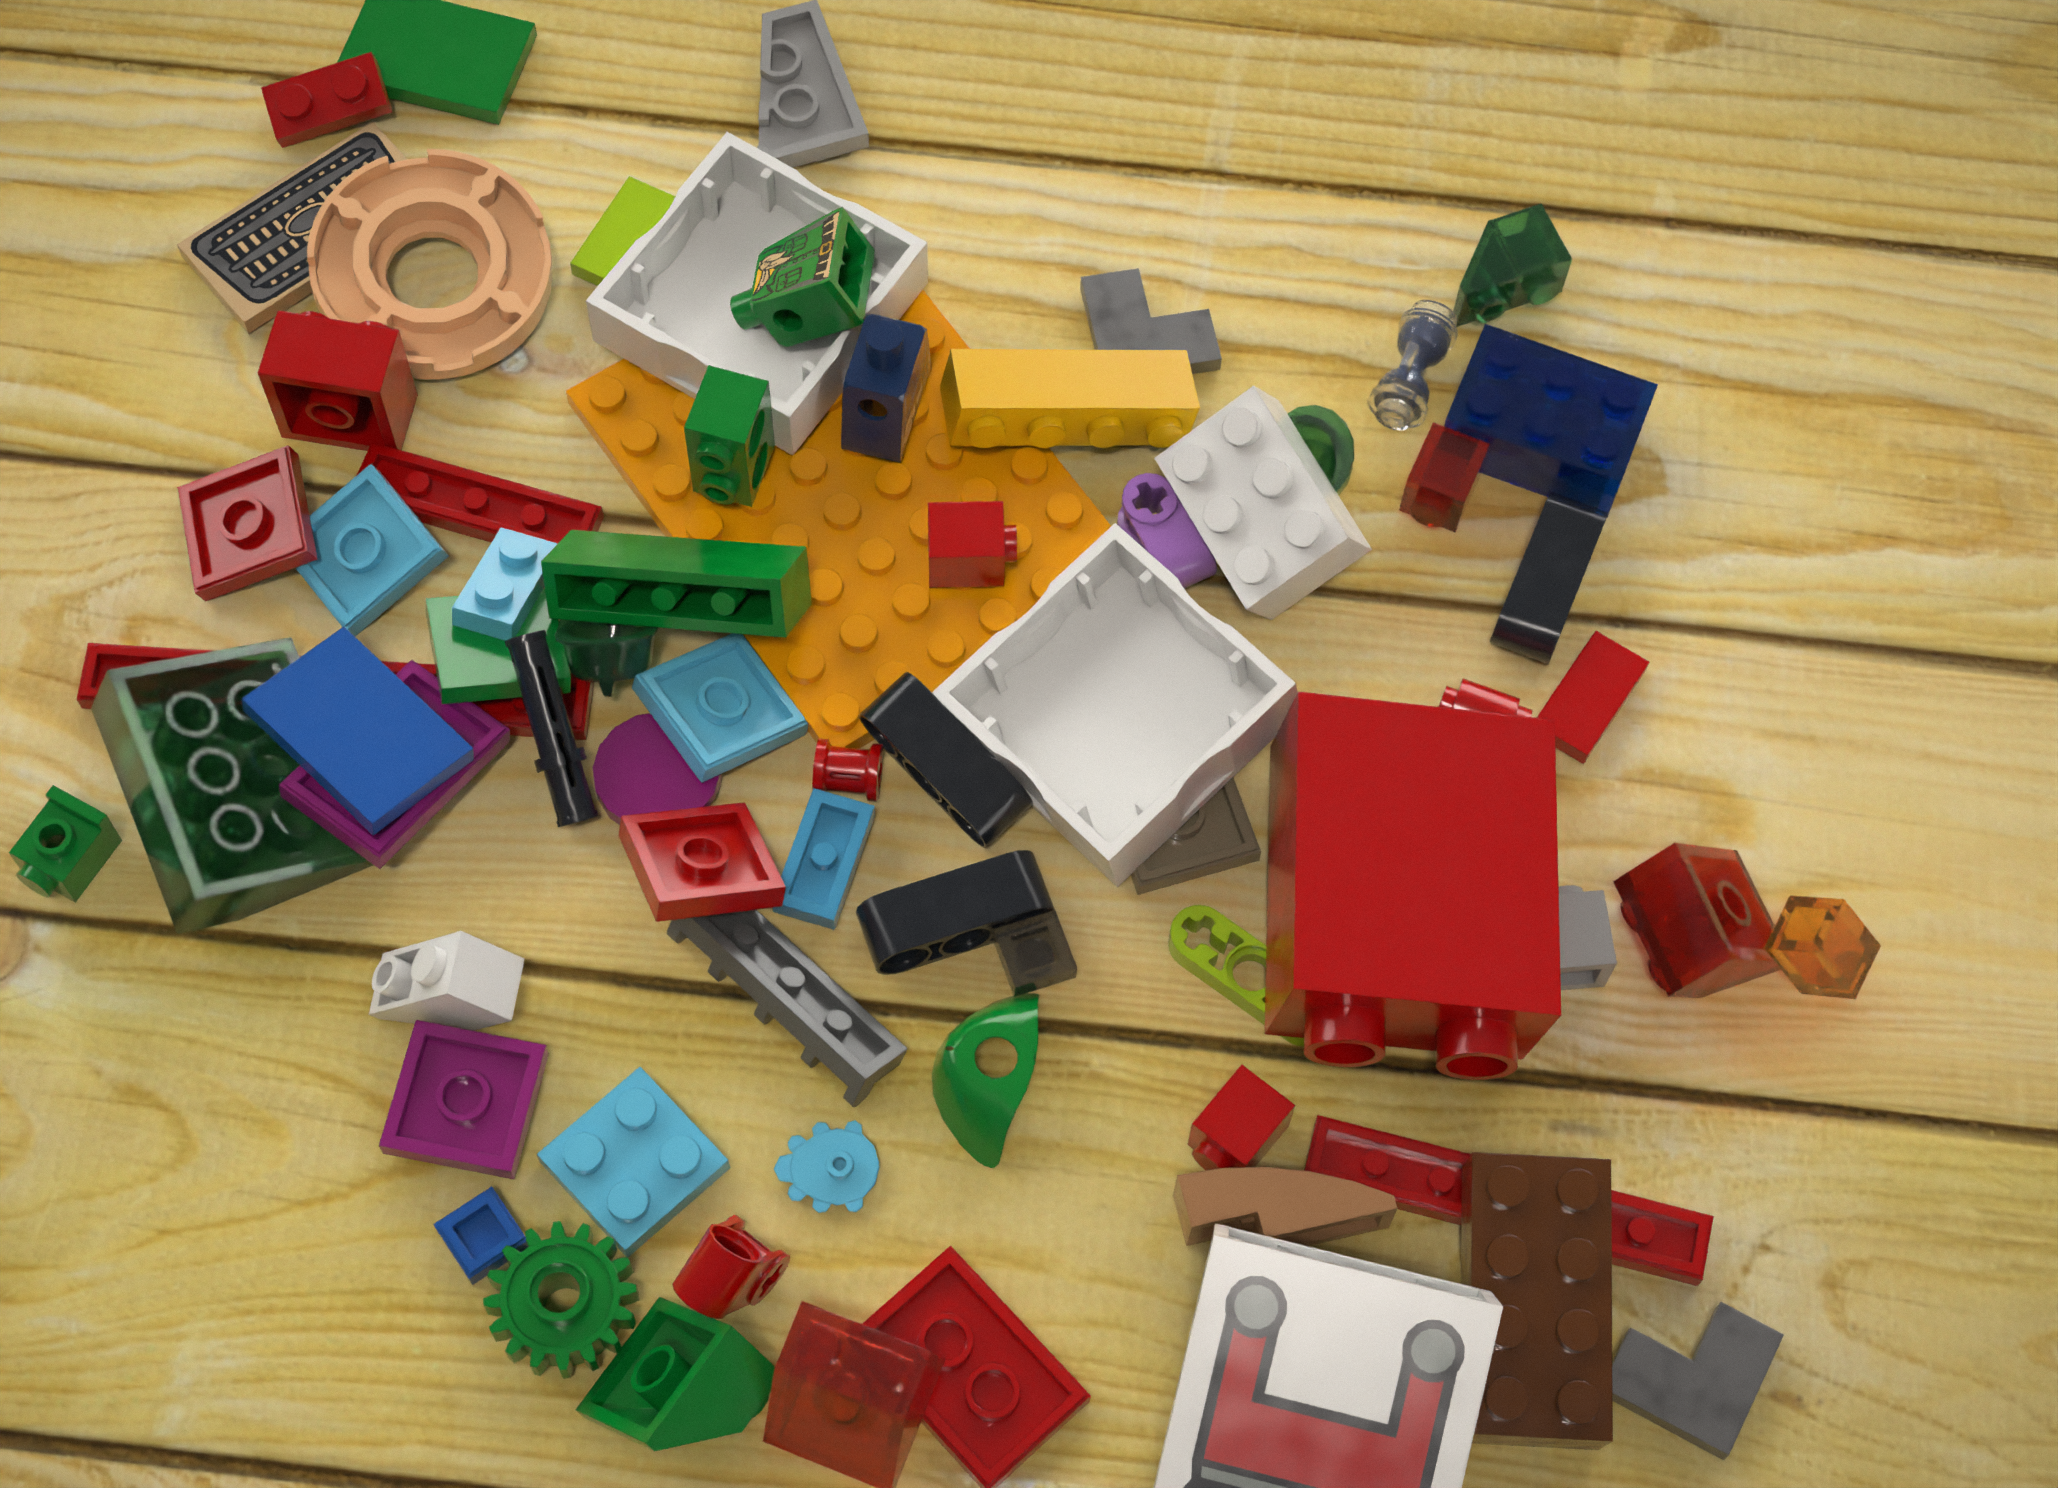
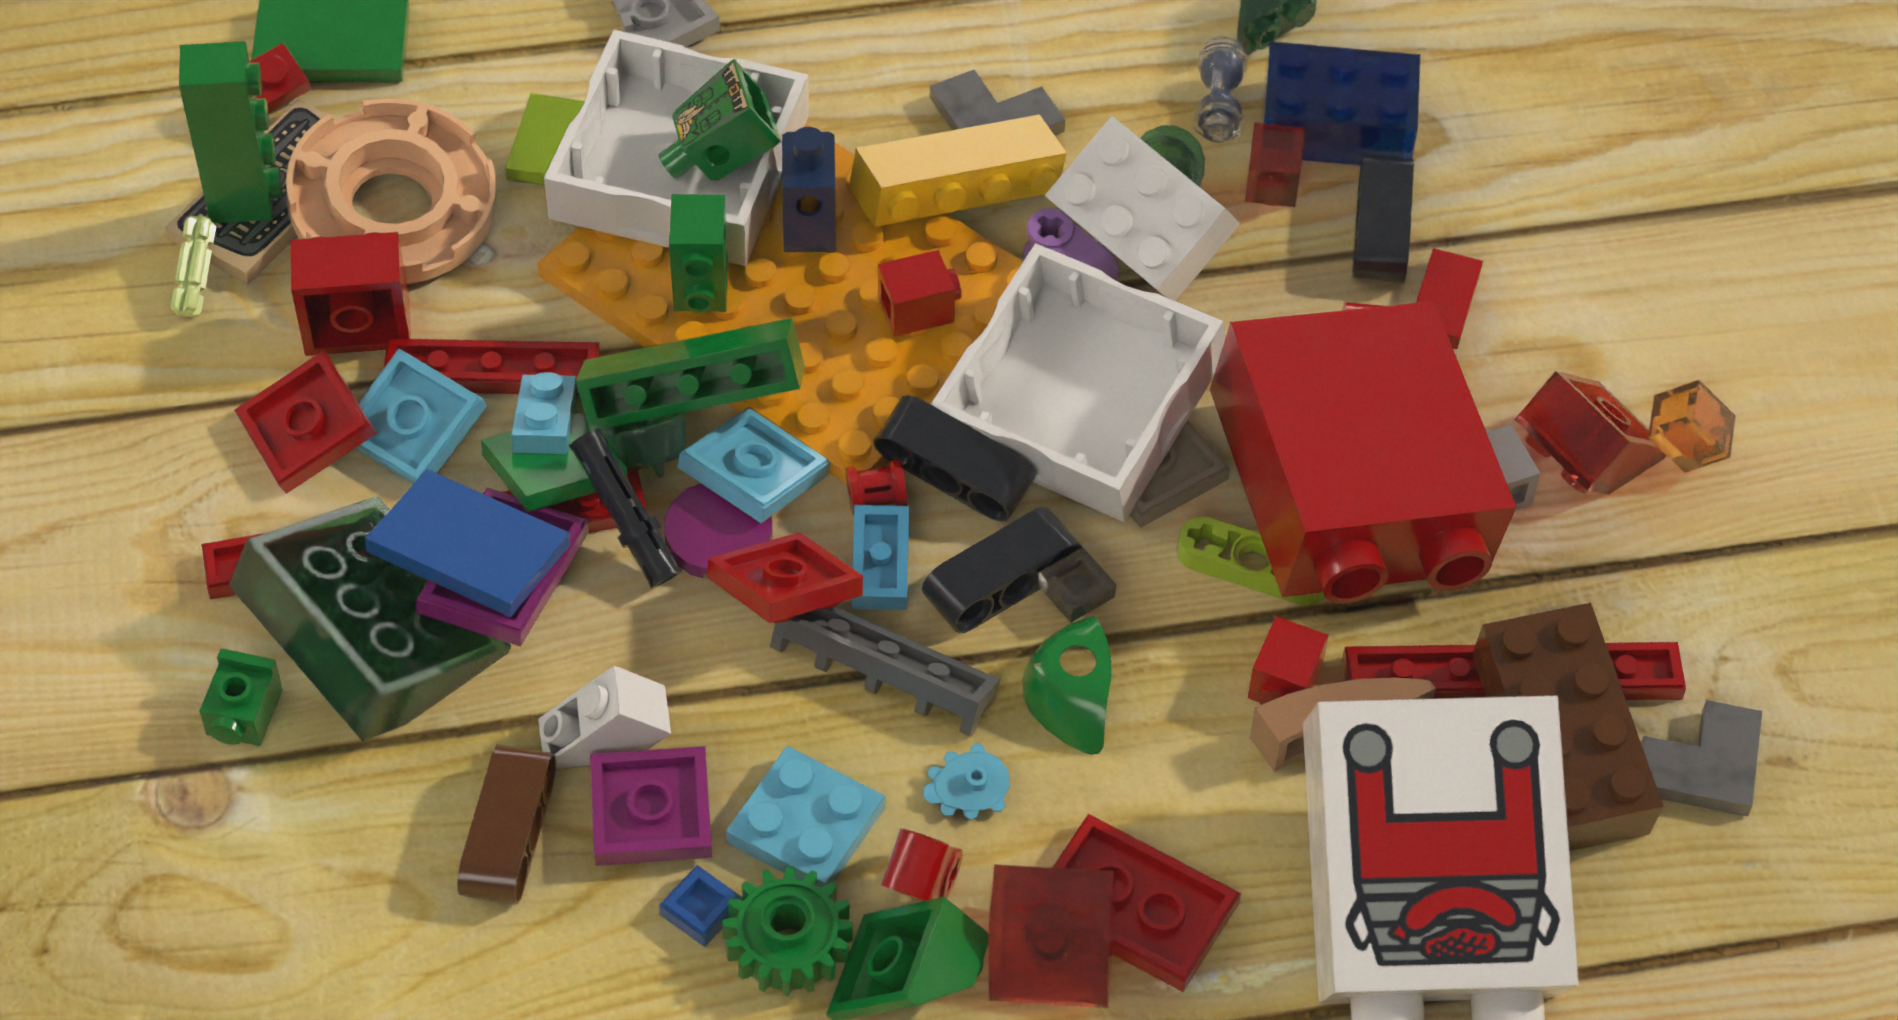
camera: 15 degrees left, 10 degrees down
(188, 301) = (193, 266): none -> yellowish green axle
(245, 160) = (228, 132): none -> green brick
(299, 1079) = (506, 824): none -> reddish brown beam

